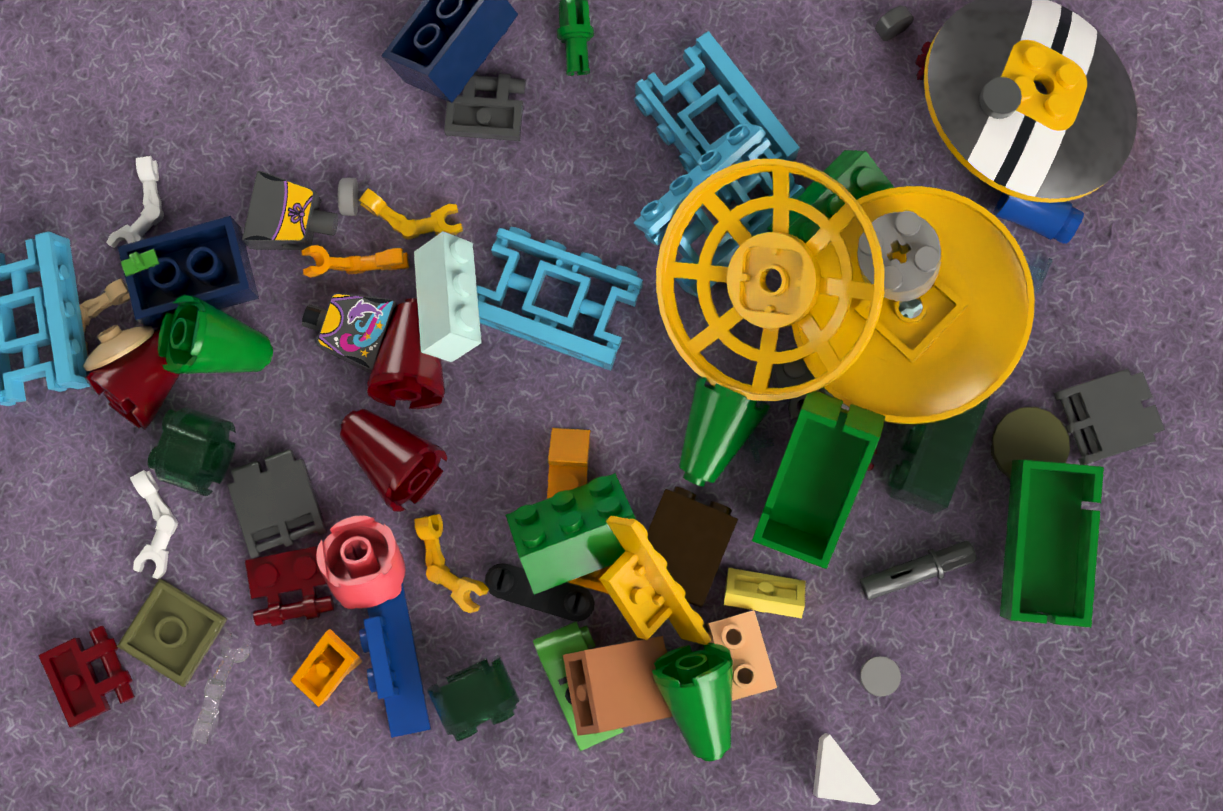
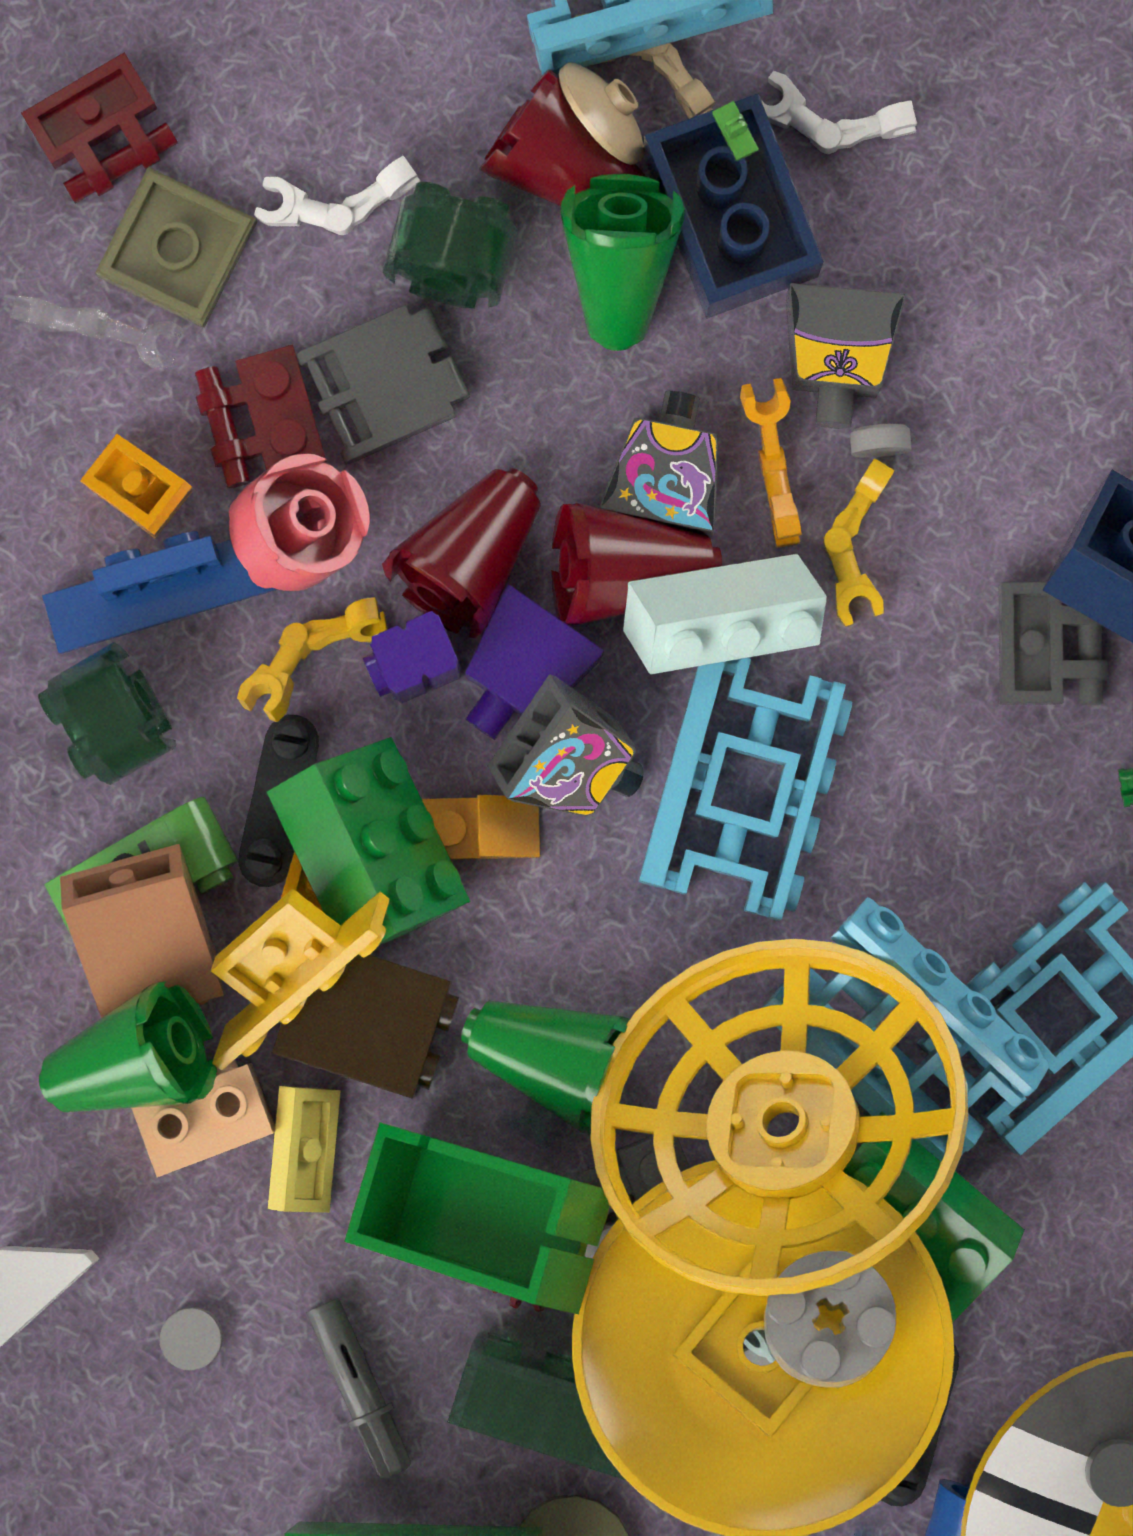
camera: 80 degrees right, 5 degrees up
(456, 495) = (412, 658): none -> dark purple brick
(466, 426) = (518, 655): none -> dark purple torso
(526, 404) = (565, 754): none -> dark grey torso

